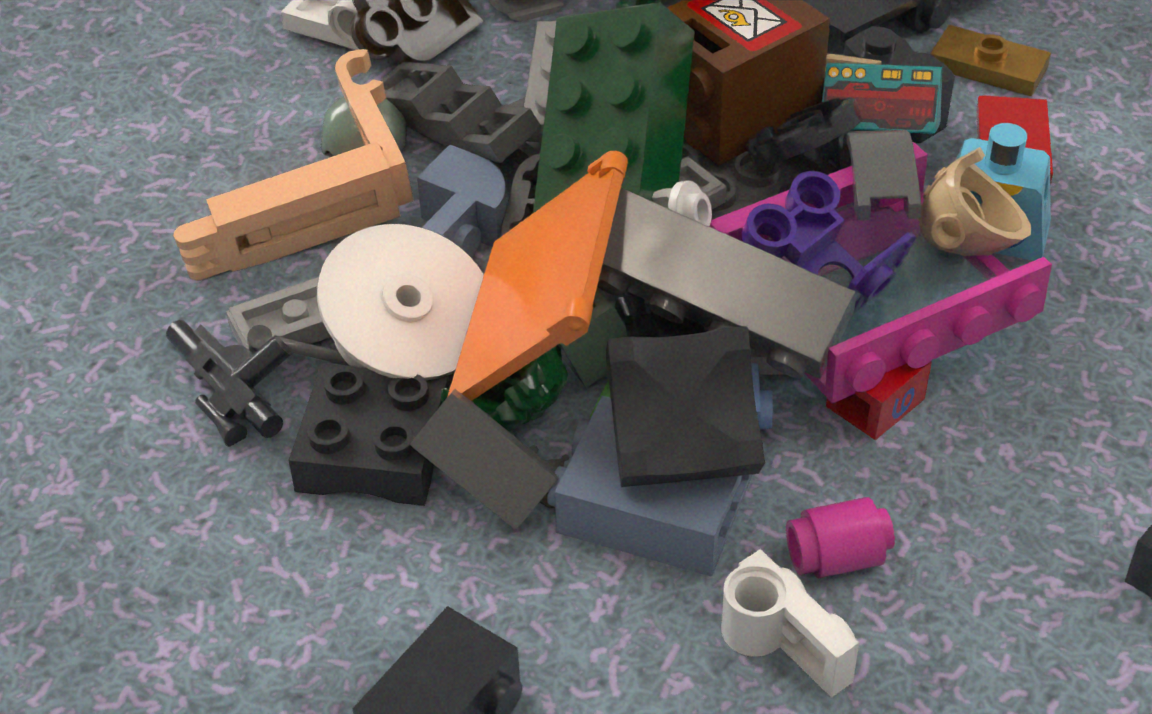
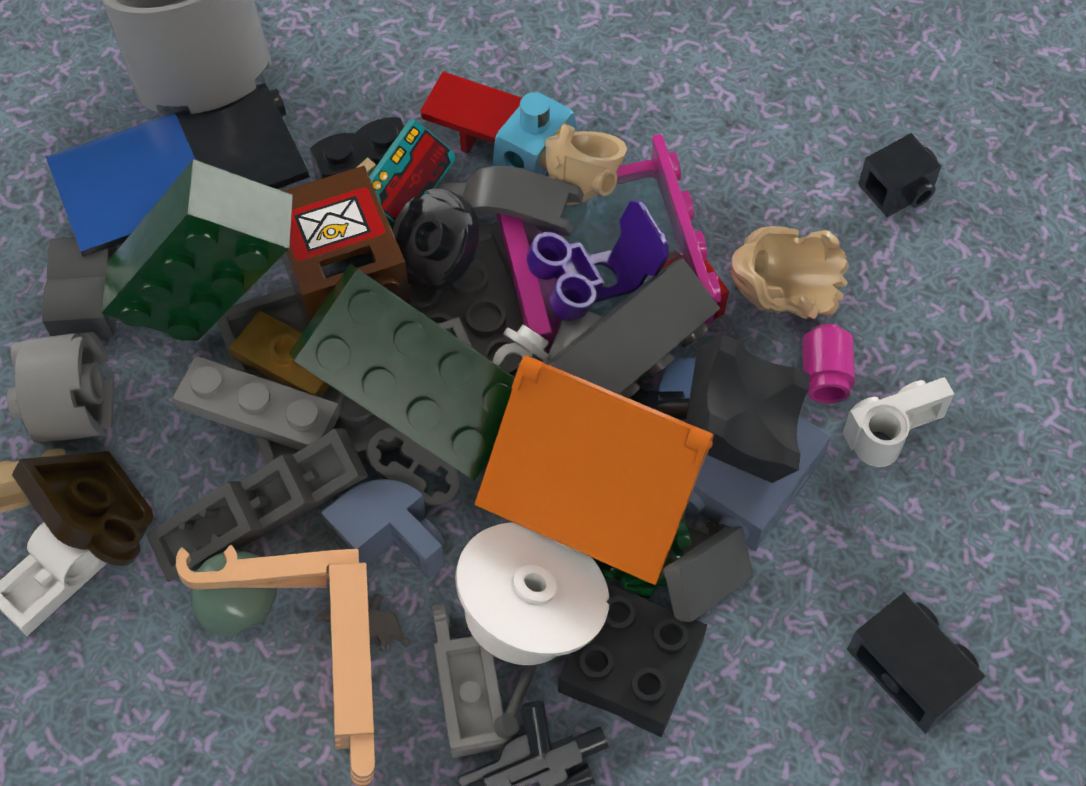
camera: 75 degrees left, 15 degrees up
(948, 461) = (791, 272): none -> tan hair
(992, 59) = (341, 92): pearl gold plate -> none

